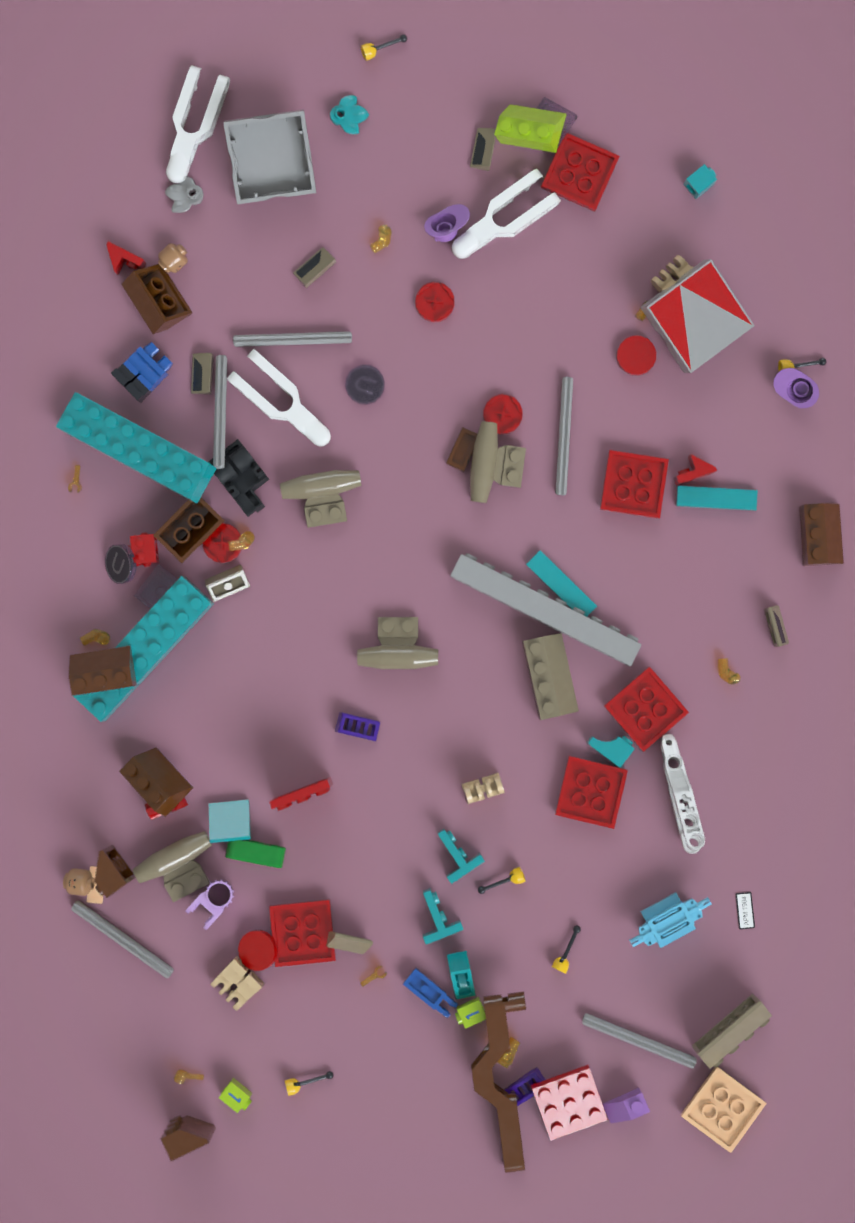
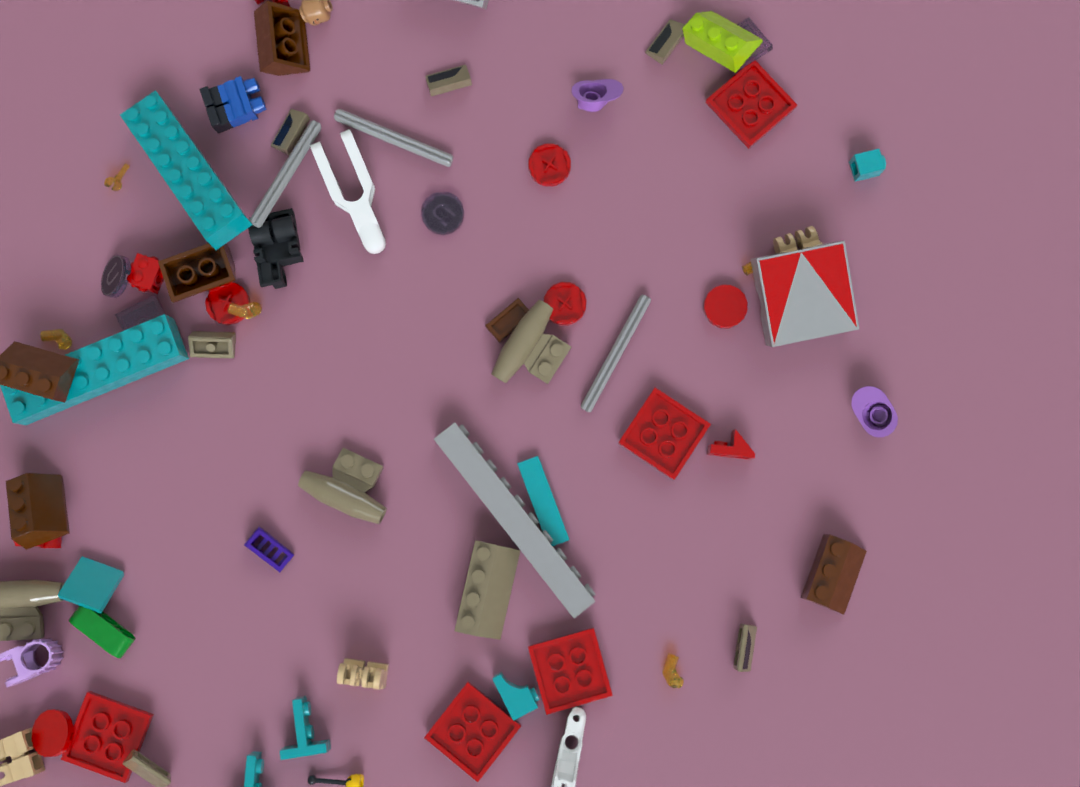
camera: 30 degrees right, 5 degrees down
(301, 794) = (170, 592): red plate -> none
(322, 494) = (348, 297): dark tan plate -> none
(384, 239) = (528, 82): clear yellow arm -> none
(487, 230) = (631, 117): white piece -> none
(716, 498) = (742, 486): teal tile -> none
(782, 364) = (870, 381): hinge -> none

